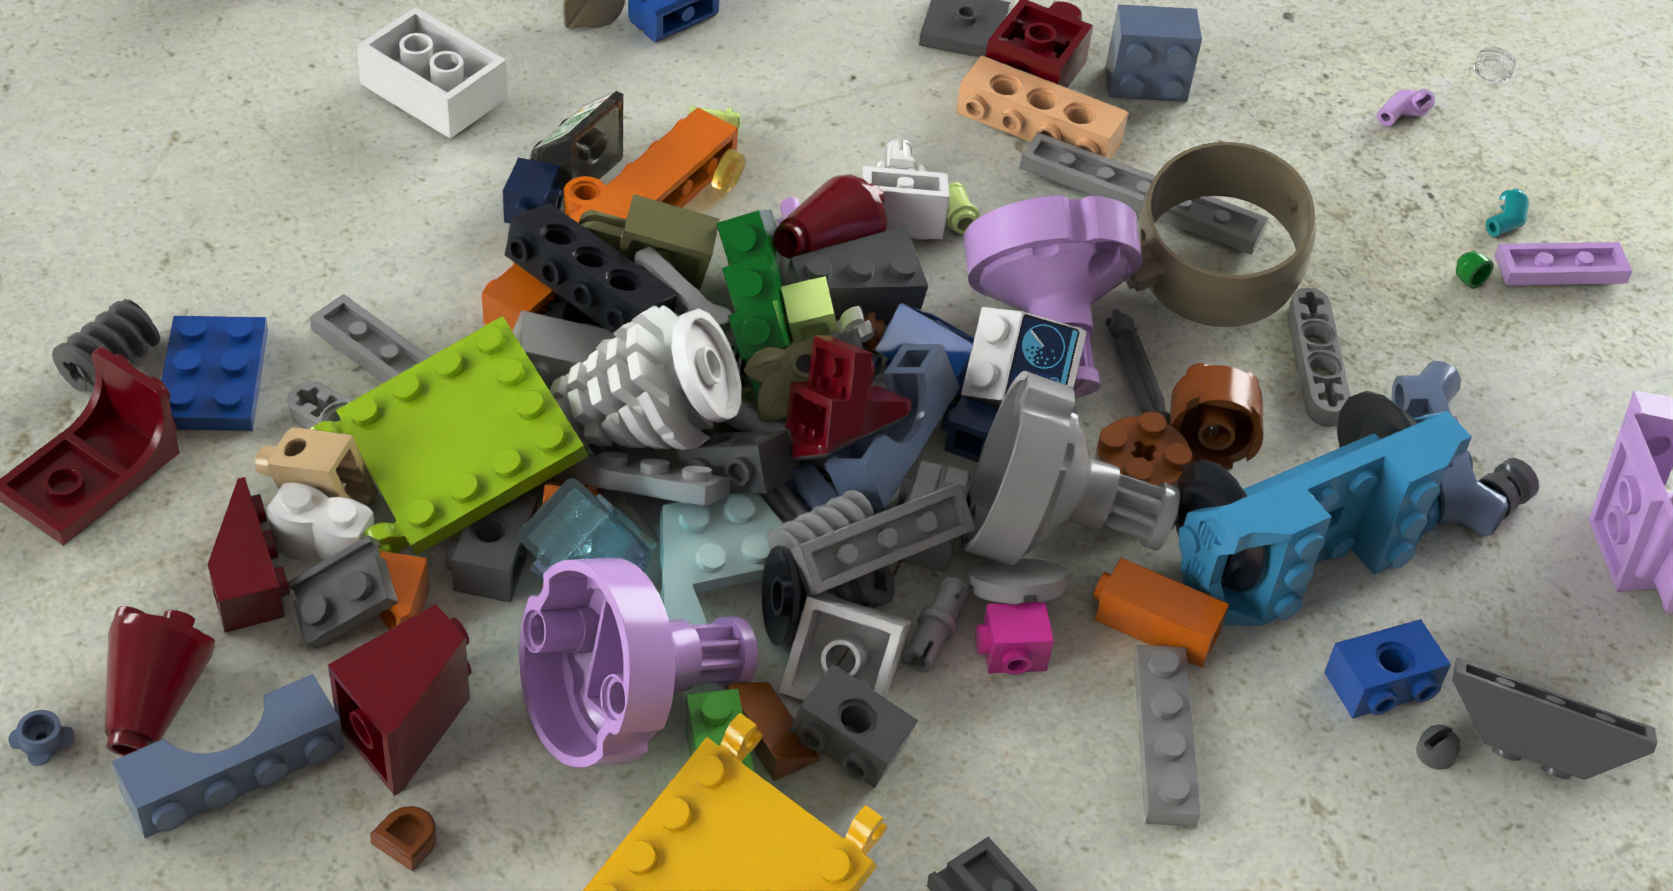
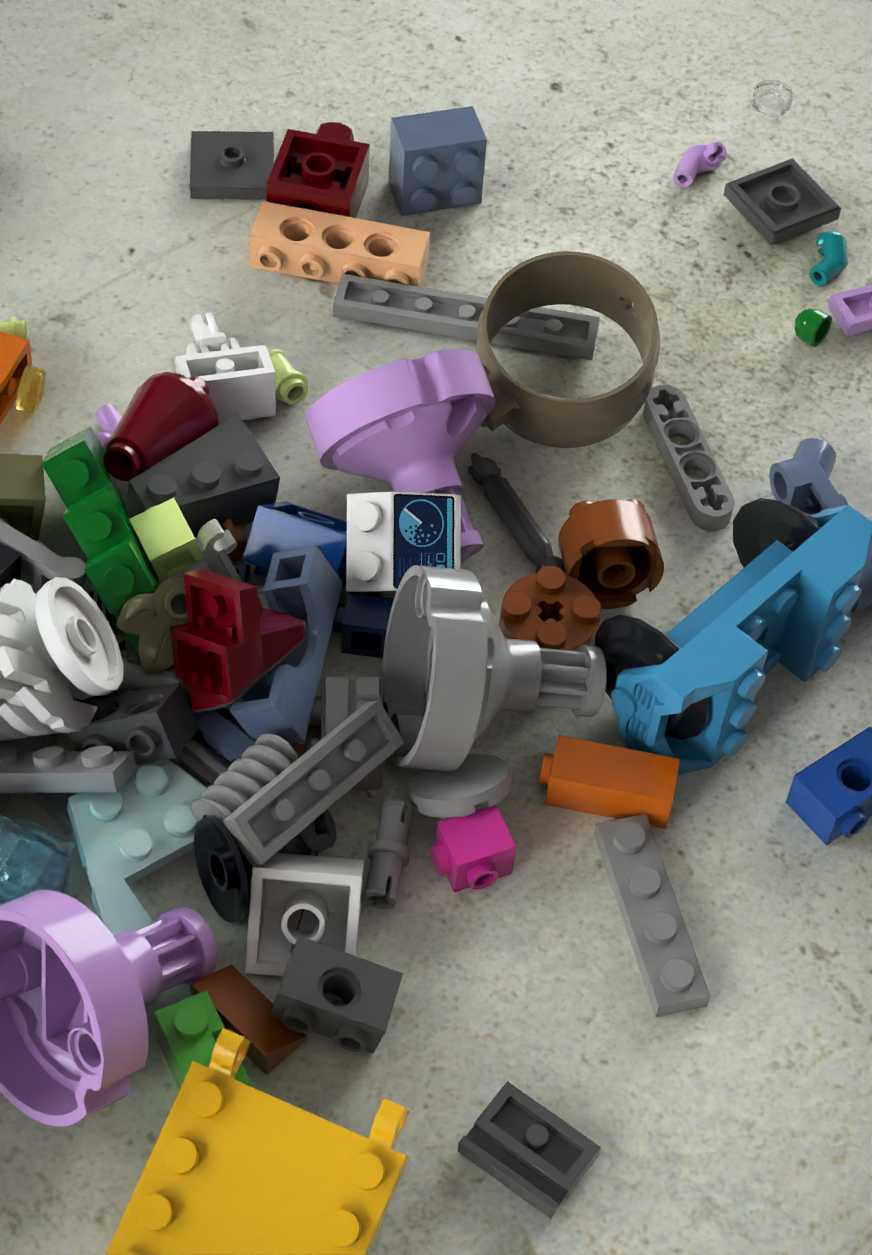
camera: 15 degrees left, 5 degrees up
(1476, 155) = (782, 201): none -> dark grey plate

